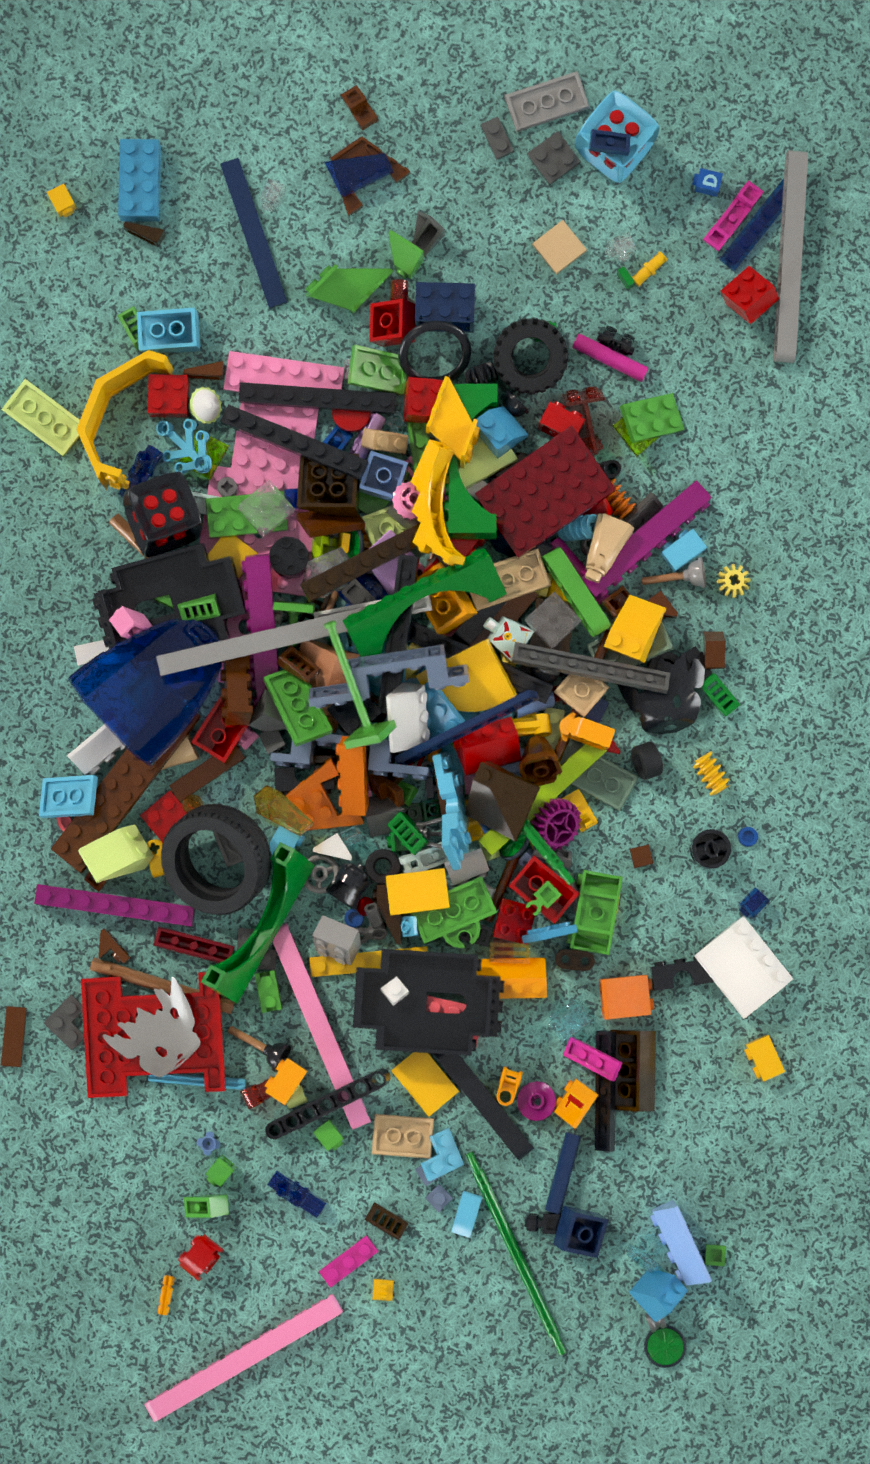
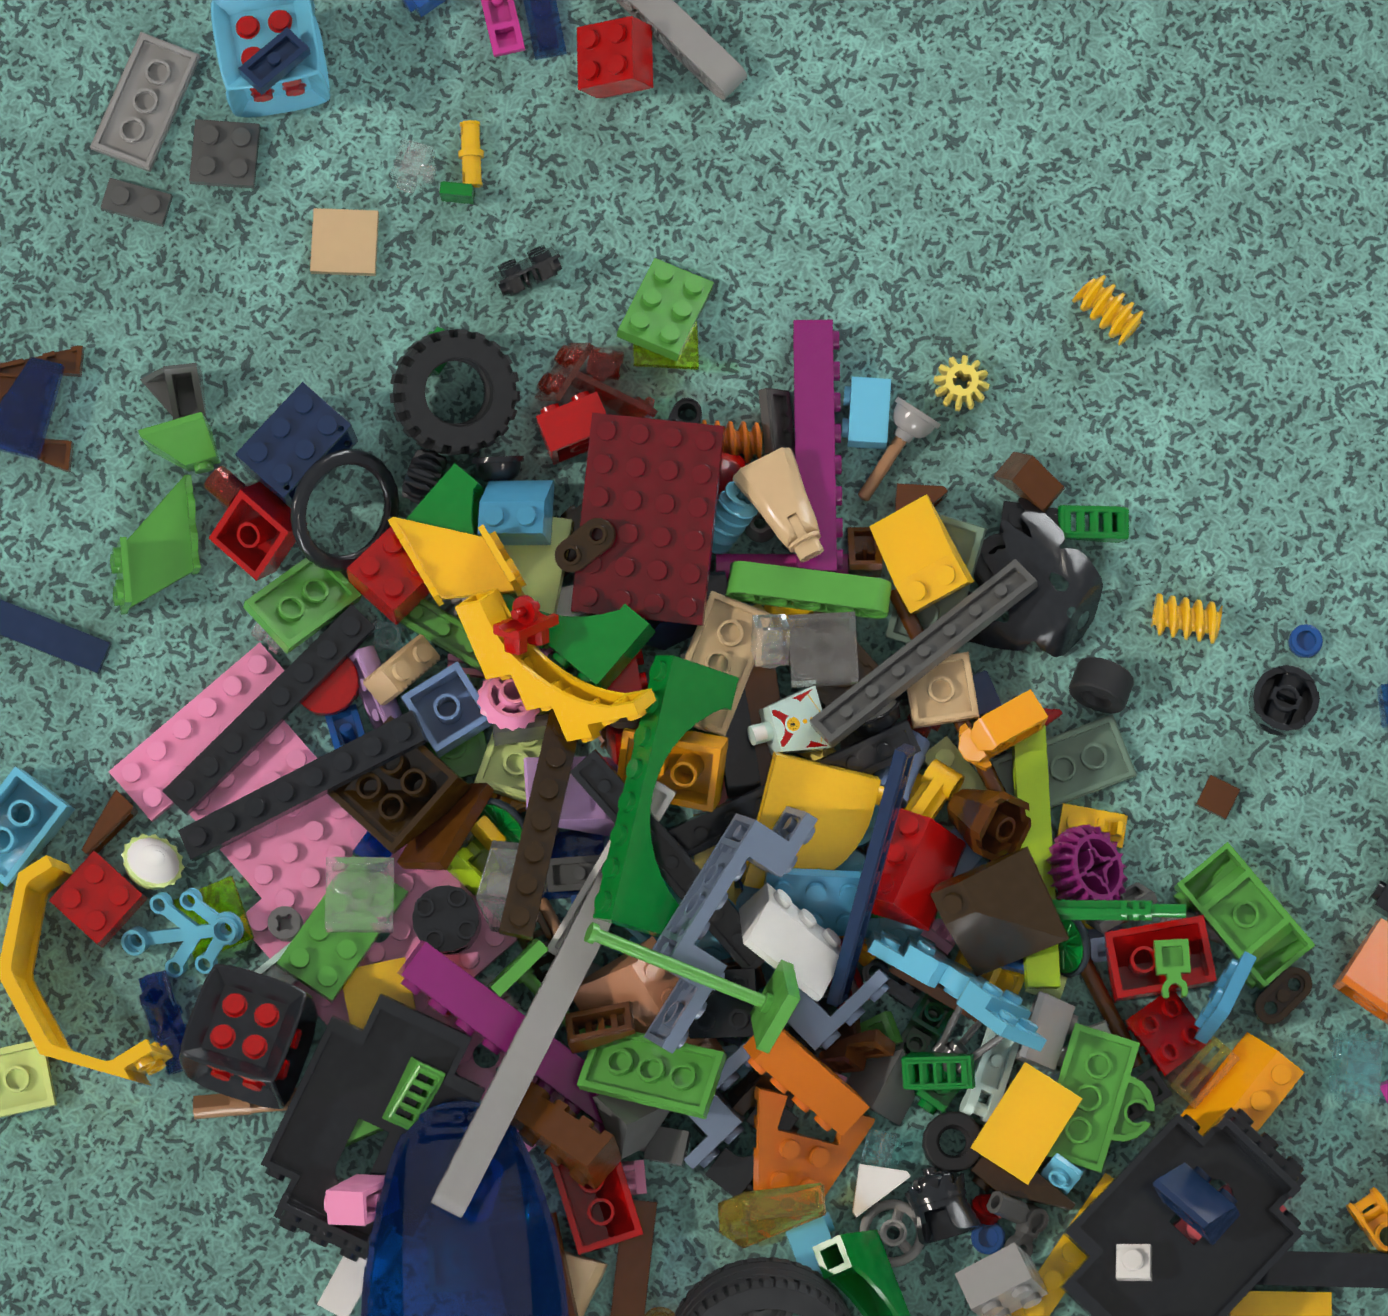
camera: 50 degrees left, 5 degrees down
(445, 996) = (1197, 1202): none -> dark blue slope
(448, 477) = (525, 626): none -> red hips
(508, 473) = (584, 545): none -> dark brown plate
(536, 593) = (770, 640): none -> clear brick
(602, 412) = (604, 364): none -> clear red piece
(610, 357) = (542, 296): dark pink brick -> none
(827, 618) = (1109, 308): none -> yellow piece

